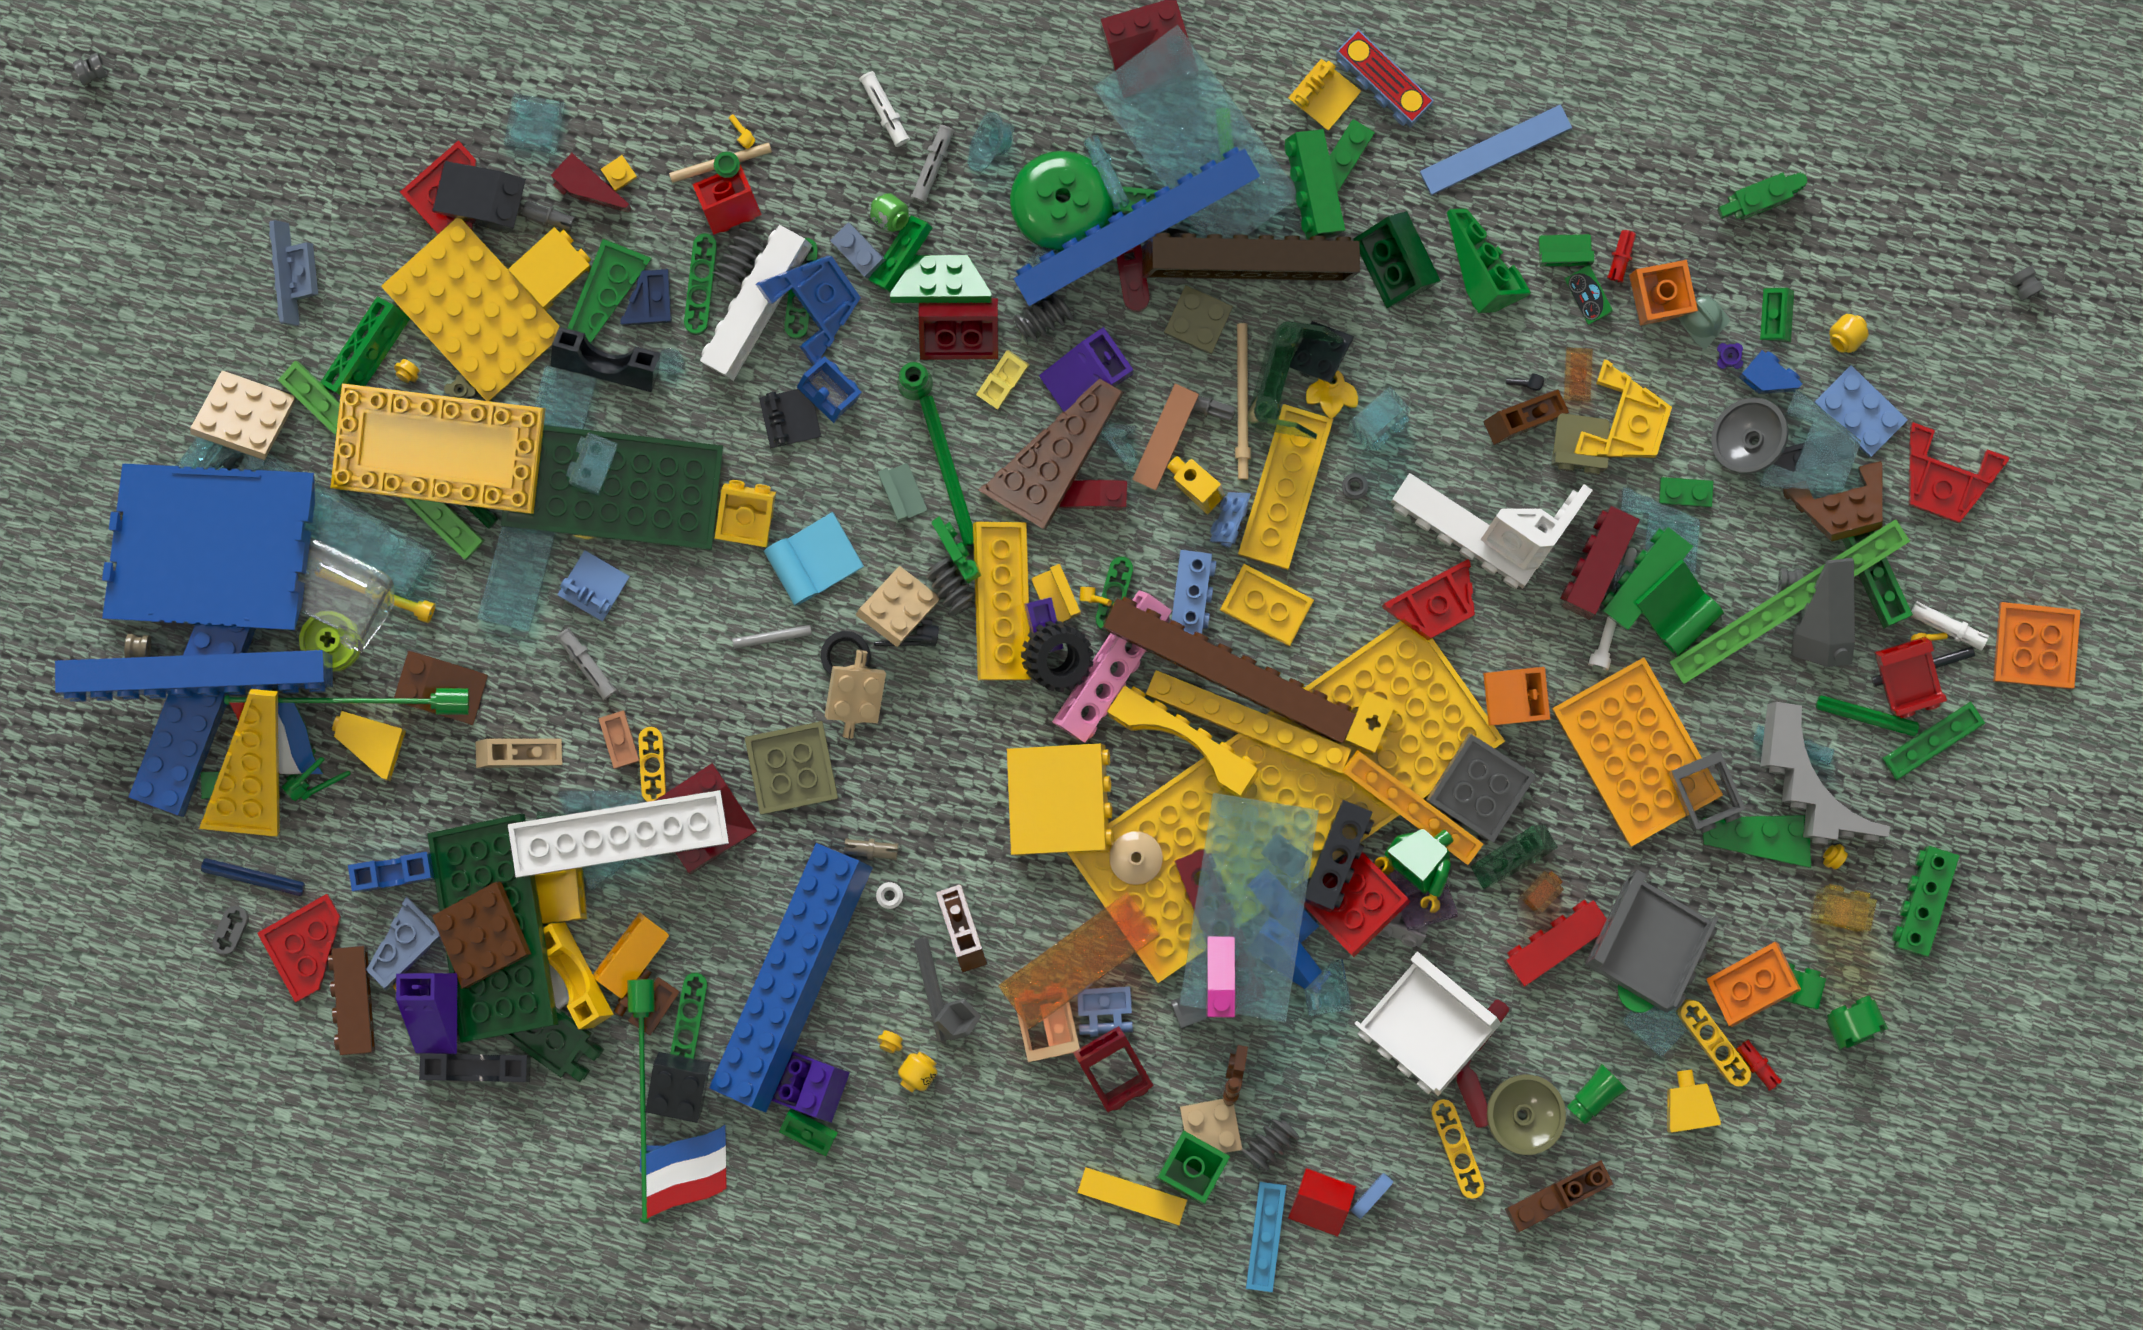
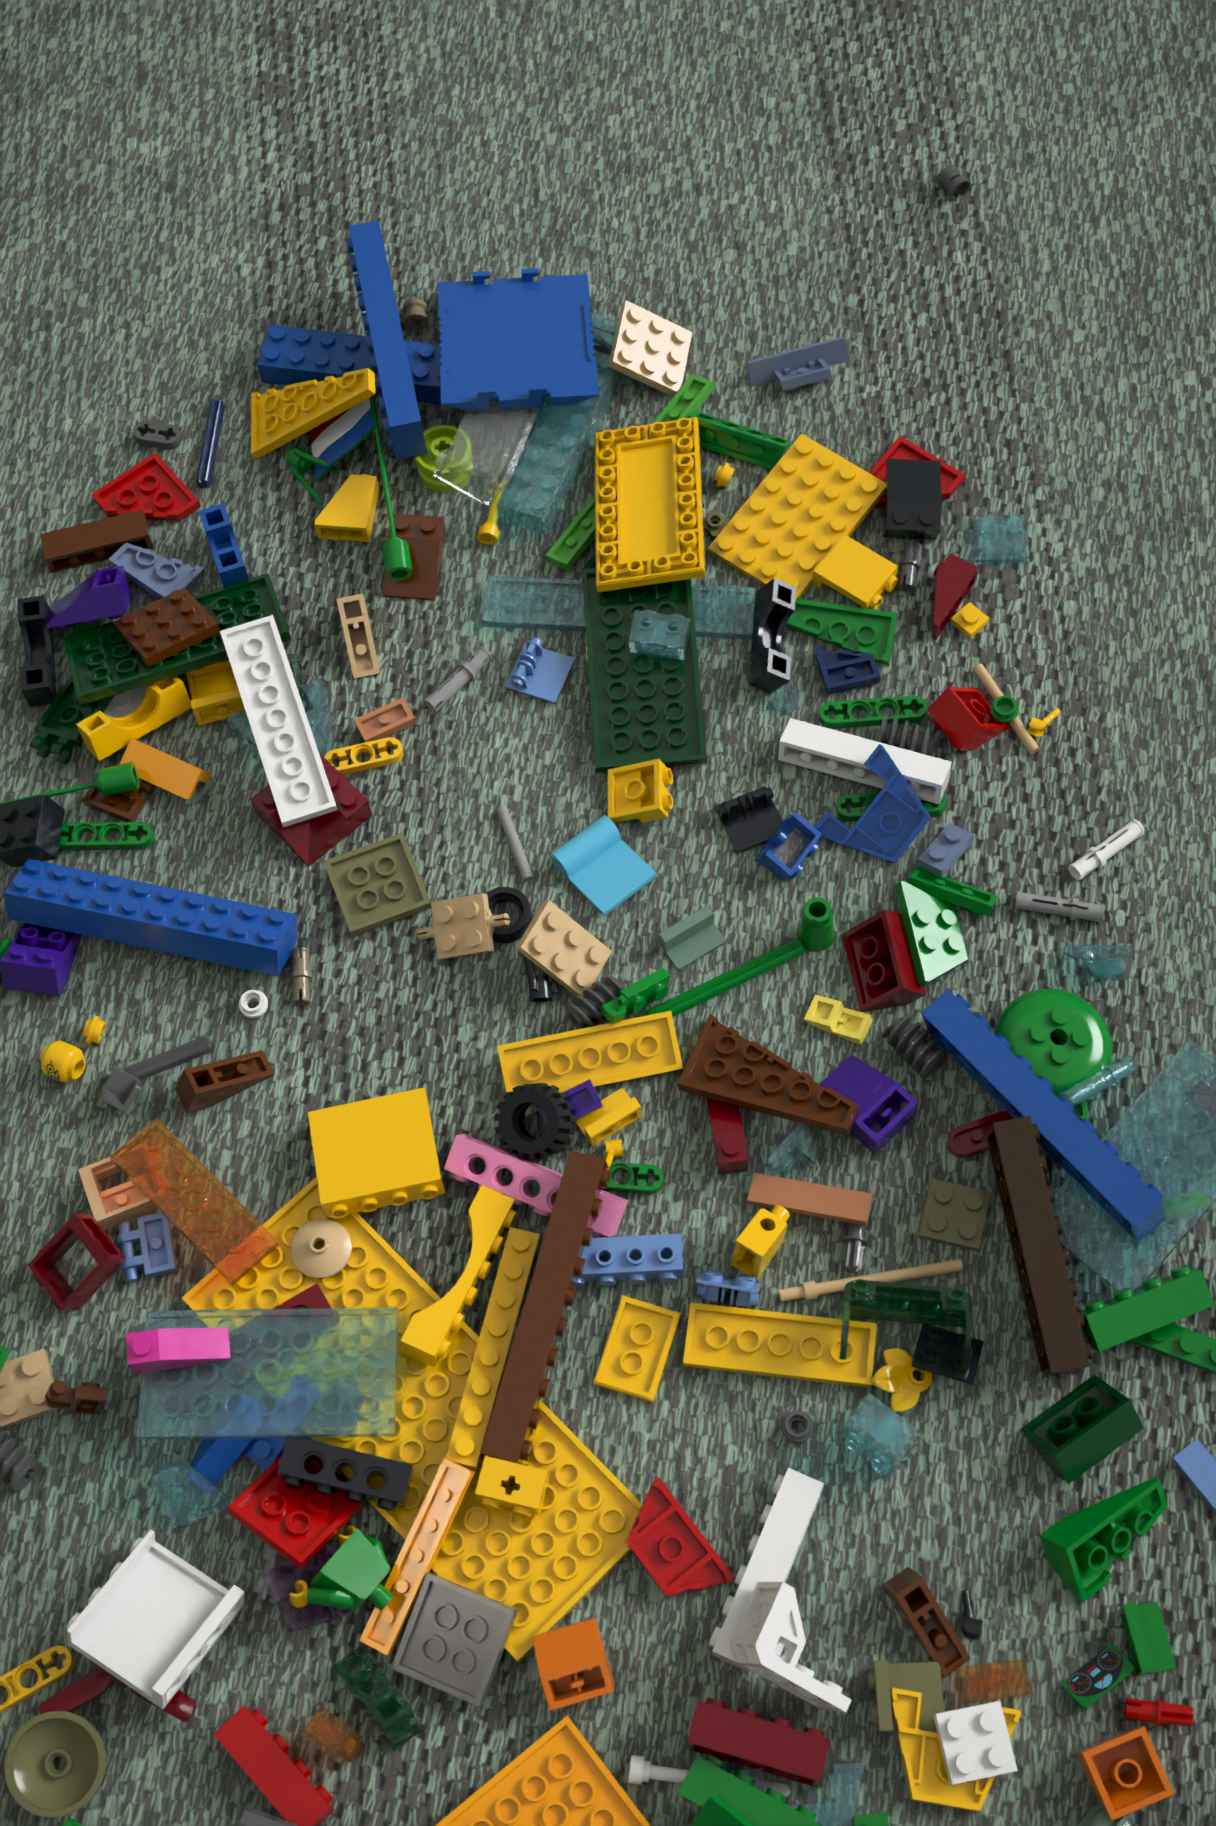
camera: 85 degrees right, 20 degrees down
(889, 212) = (994, 872): bright green head -> none
(1624, 399) = (975, 1743): none -> white plate

